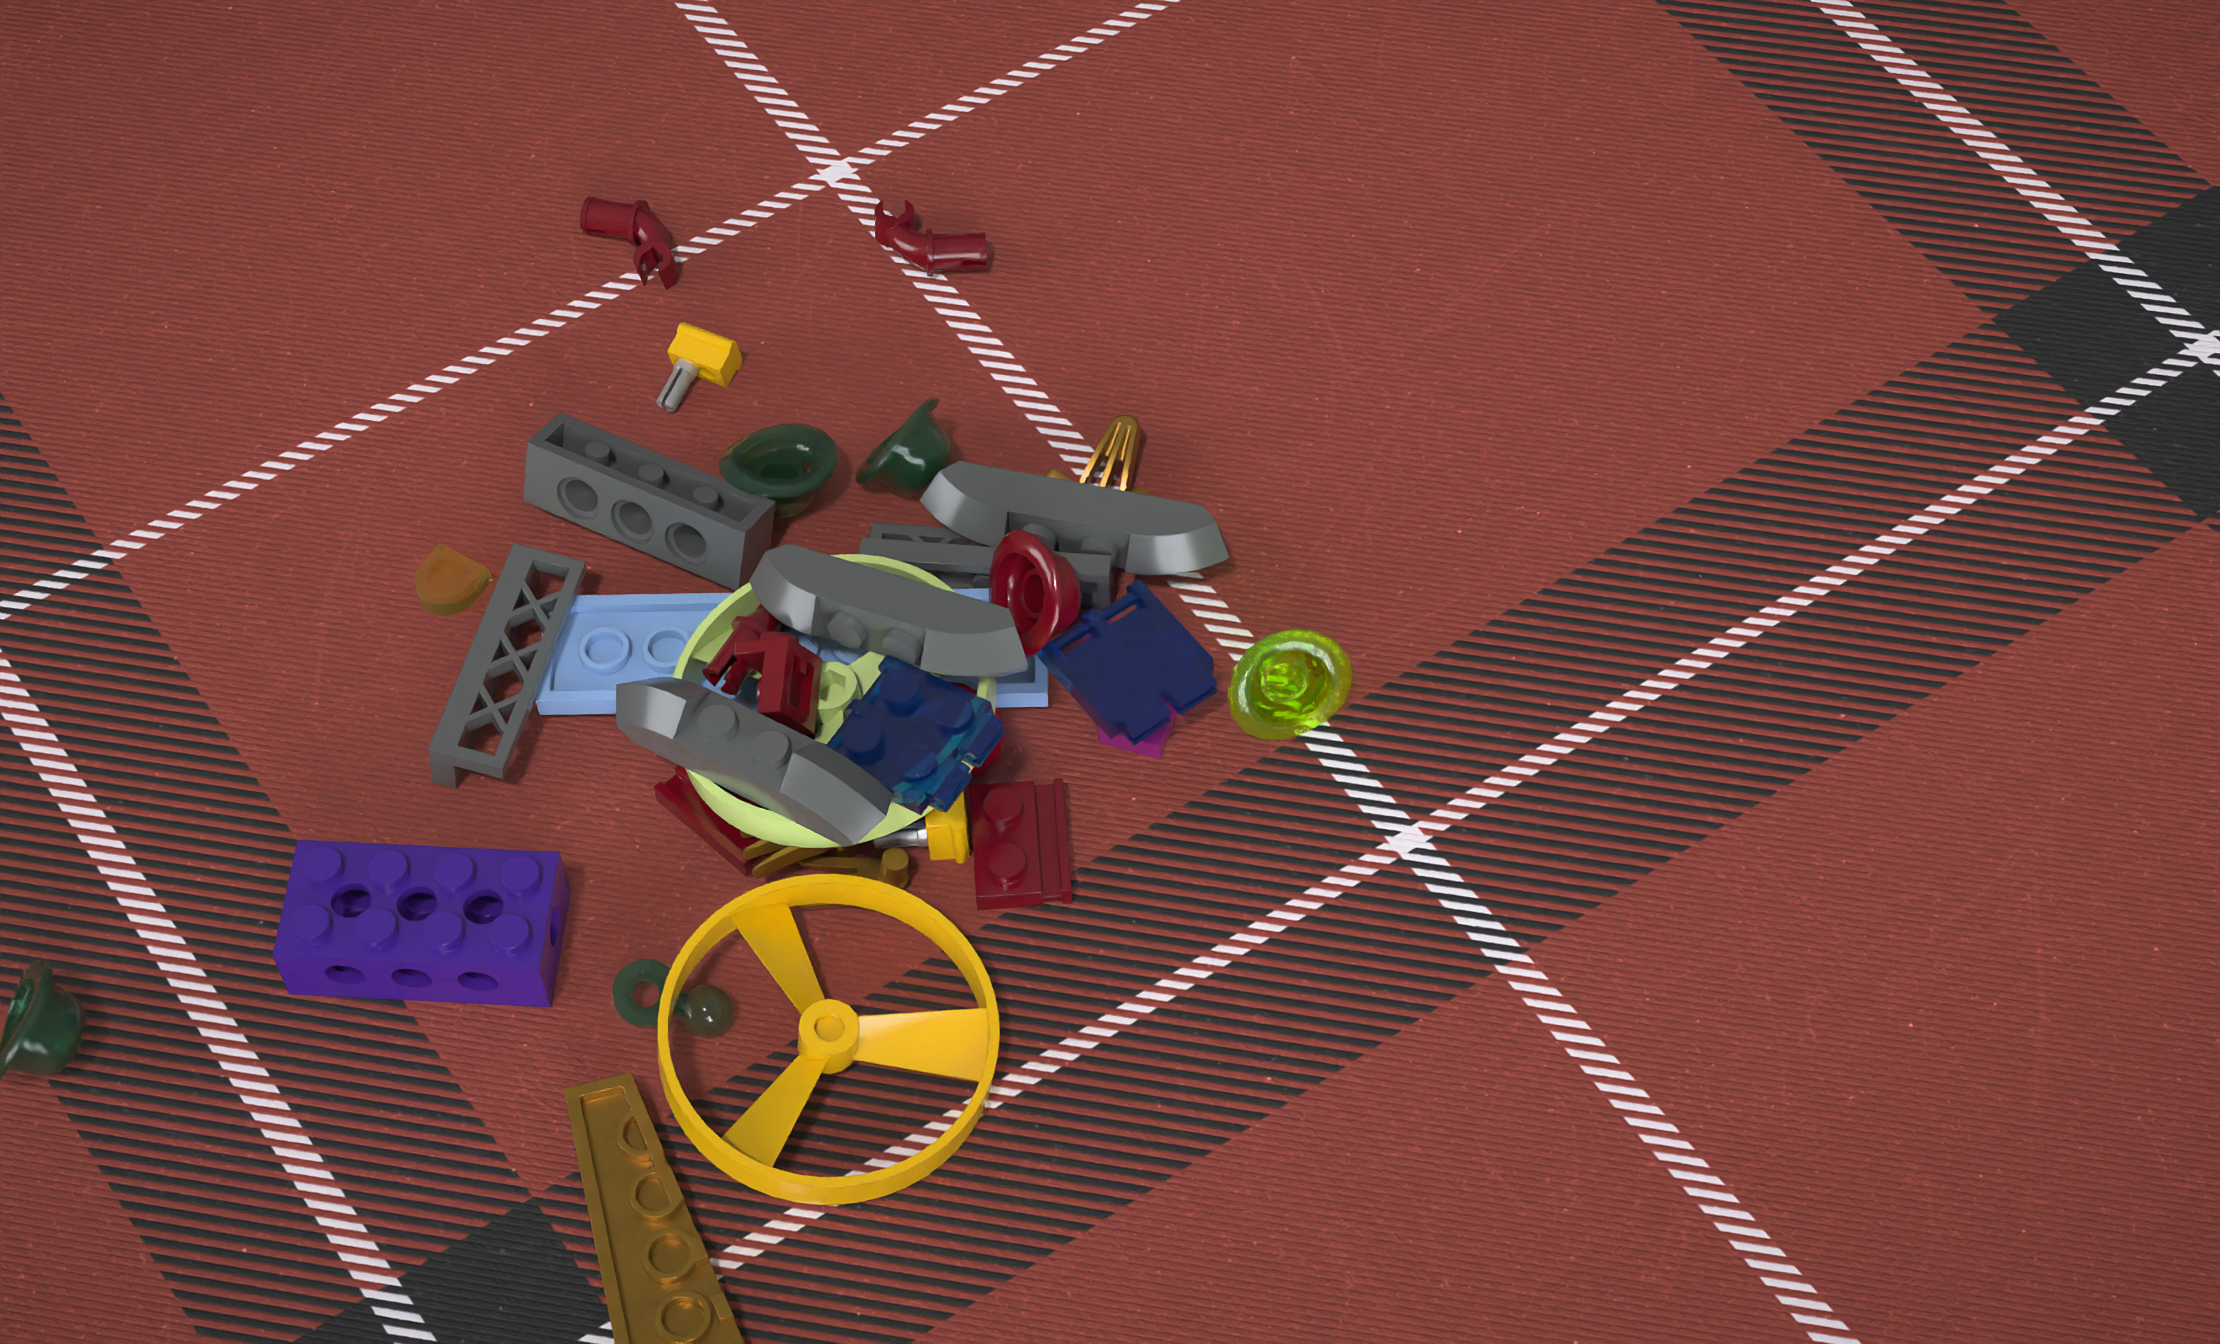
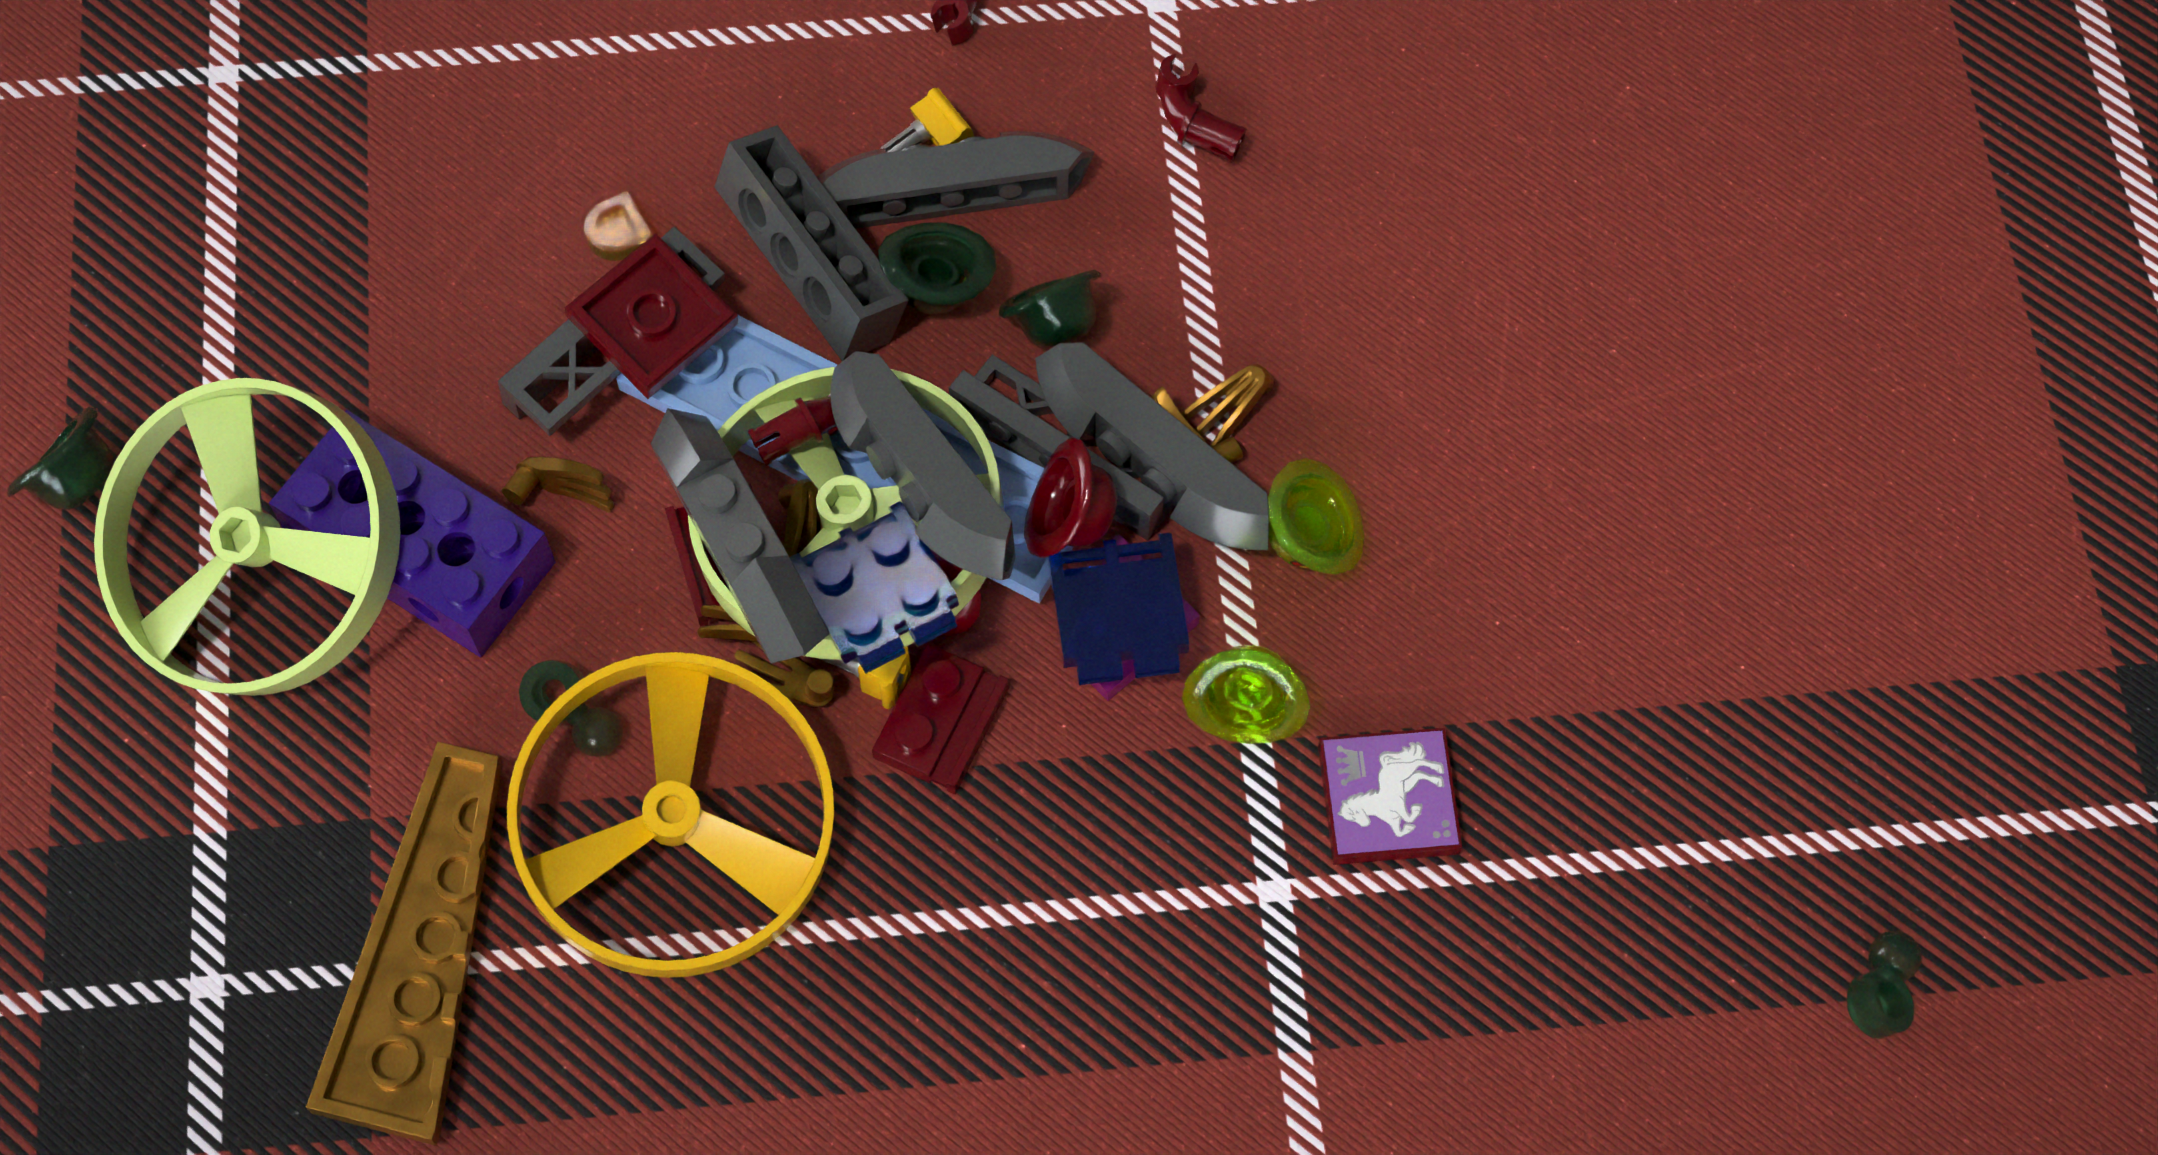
camera: 25 degrees right, 10 degrees up
(268, 992) = (242, 534): none -> yellowish green piece
(537, 812) = (560, 478): none -> pearl gold piece
(541, 625) = (651, 315): none -> dark red tile
(749, 388) = (956, 177): none -> dark grey brick
(788, 680) = (804, 480): dark red bracket -> none
(1254, 514) = (1314, 518): none -> clear neon green hat
(1459, 711) = (1389, 796): none -> tile
(1971, 661) = (1880, 999): none -> clear green plate

